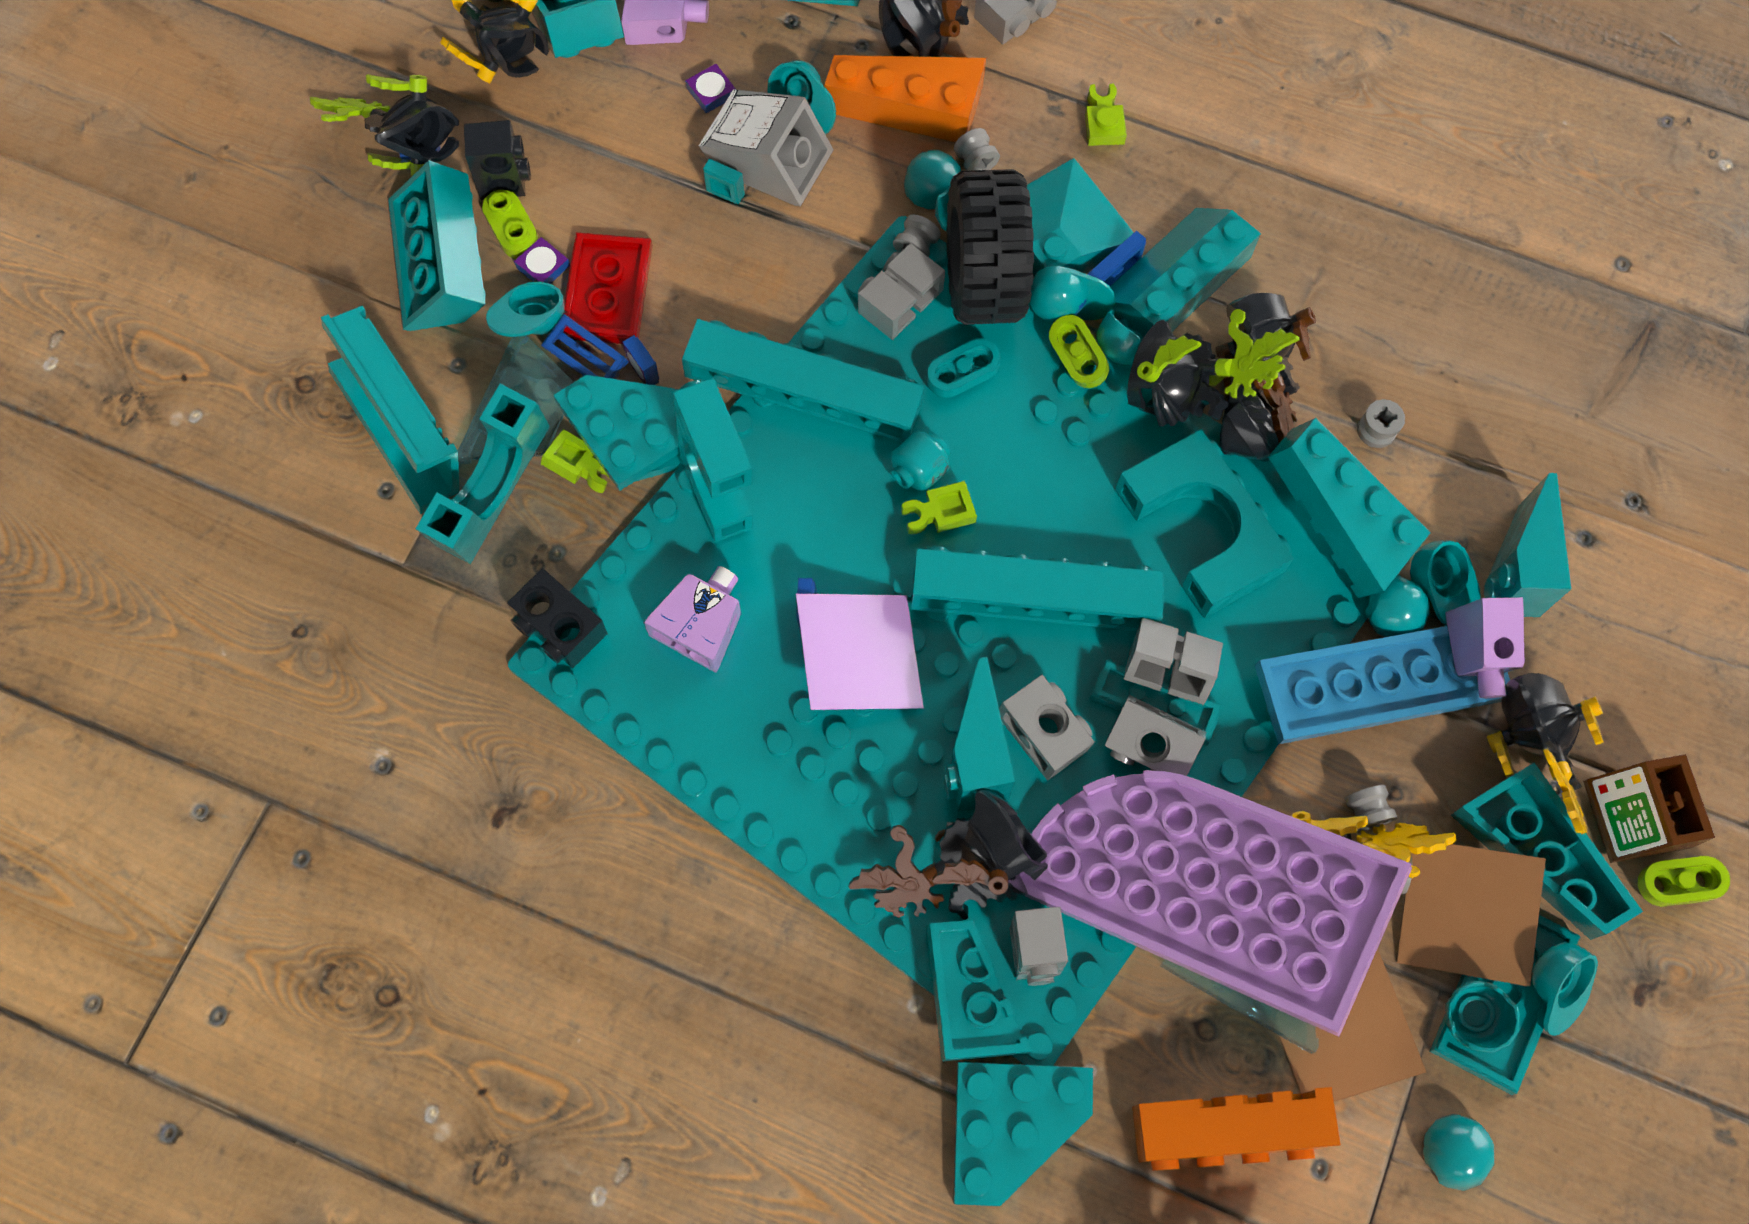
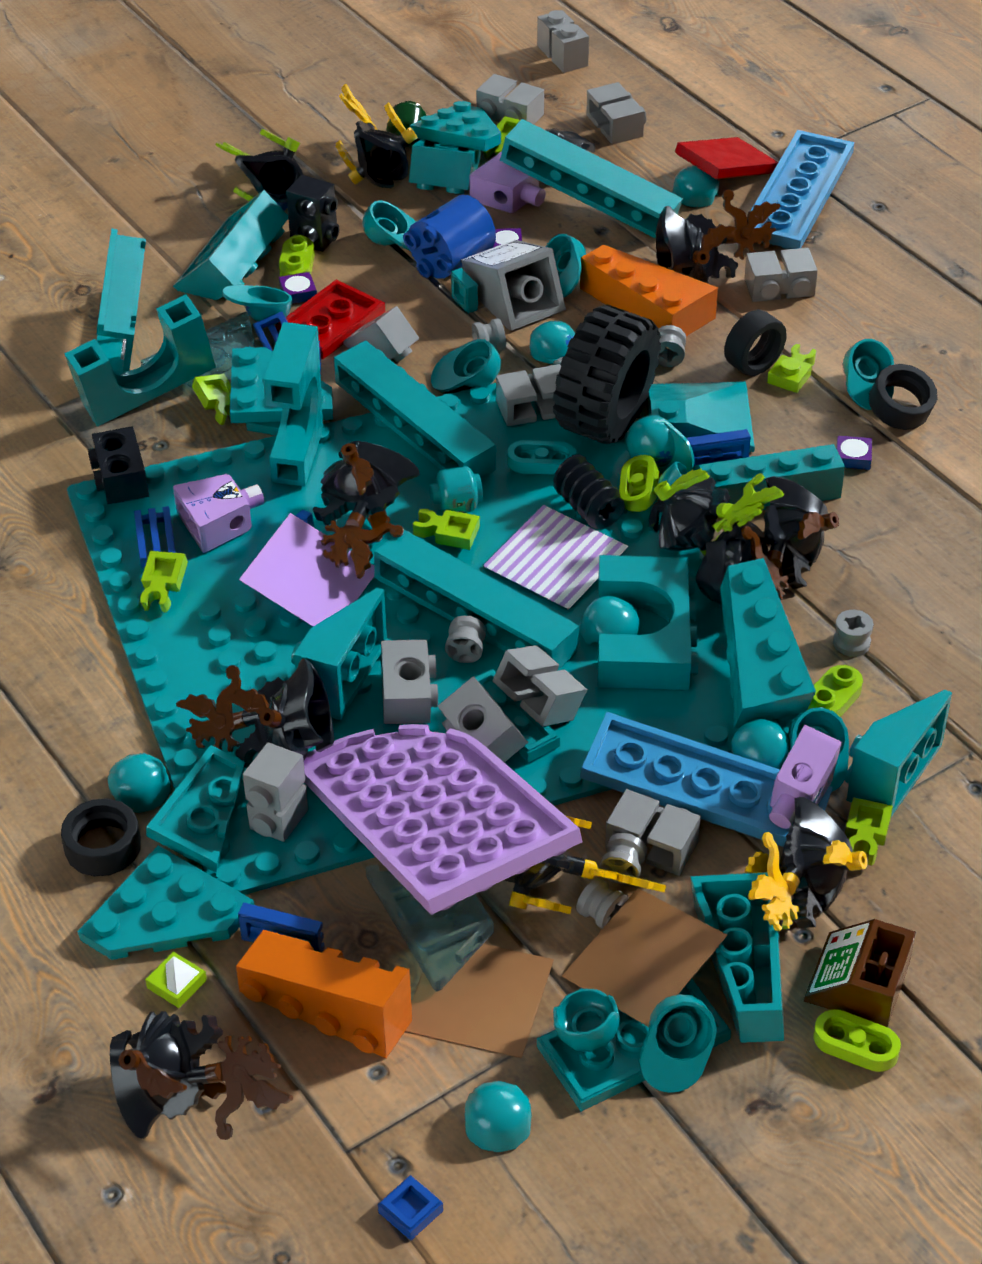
camera: 35 degrees right, 25 degrees down
(585, 129) = (386, 224): none -> teal cap
(635, 659) = (153, 518): none -> blue tile
(666, 120) = (449, 235): none -> blue cylinder
(687, 290) = (387, 333): none -> light grey slope
(709, 731) = (162, 574): none -> lime plate
(793, 232) = (491, 332): none -> light grey wheel
(801, 287) = (468, 365): none -> teal cap
(855, 519) = (366, 485): none -> helmet
(869, 209) = (550, 341): none -> teal cap
(873, 993) = (139, 782): none -> teal hair
(925, 1074) = (101, 860): none -> black tyre
(1046, 394) = (588, 492): none -> black piece
(1057, 482) = (554, 556): none -> sticker
(1060, 641) = (465, 639): none -> light grey wheel
(1064, 110) = (744, 334): none -> black tyre
(1080, 1193) = (176, 979): none -> lime tile
(1140, 1083) = (256, 918): none -> blue tile
(1168, 540) = (608, 616): none -> teal hair
(1185, 87) = (862, 366): none -> teal cap
(1231, 194) = (855, 451): none -> tile
(1252, 90) = (912, 380): none -> black tyre
(1364, 760) = (669, 829): none -> light grey piece
(1413, 498) = (838, 689): none -> lime plate
(1543, 644) = (868, 826): none -> lime plate

